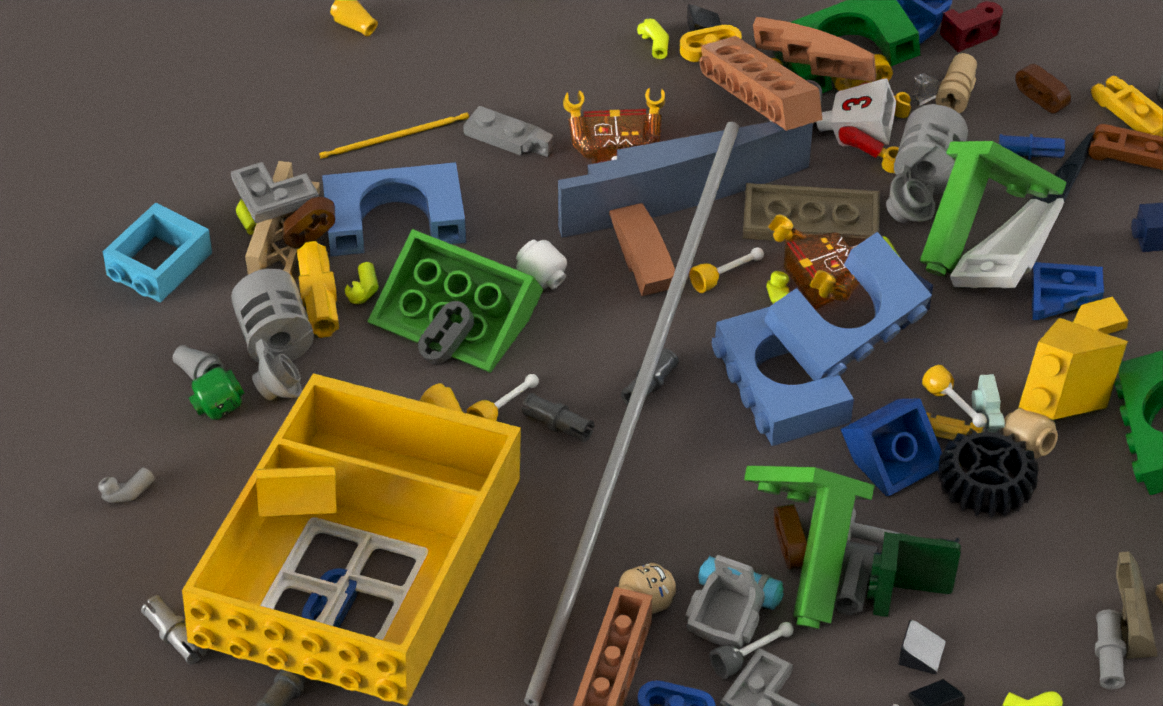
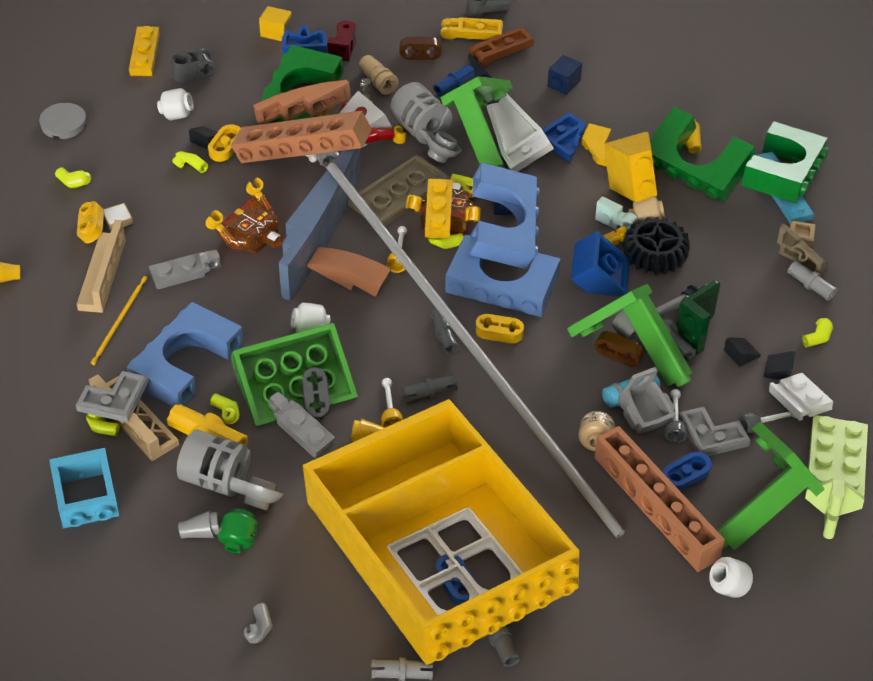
camera: 50 degrees left, 0 degrees up
(296, 491) = (402, 521): yellow slope -> none
(304, 219) = (160, 396): reddish brown beam -> none
(397, 351) = (300, 425): none -> light grey hinge
(440, 78) = (102, 270): none -> tan fence
(483, 29) = (90, 222): none -> yellow plate
(520, 41) = (117, 212): none -> white tile
(703, 423) = (499, 328): none -> yellow beam
(801, 253) = (438, 208): none -> yellow plate
(941, 383) = (577, 222): hinge -> none

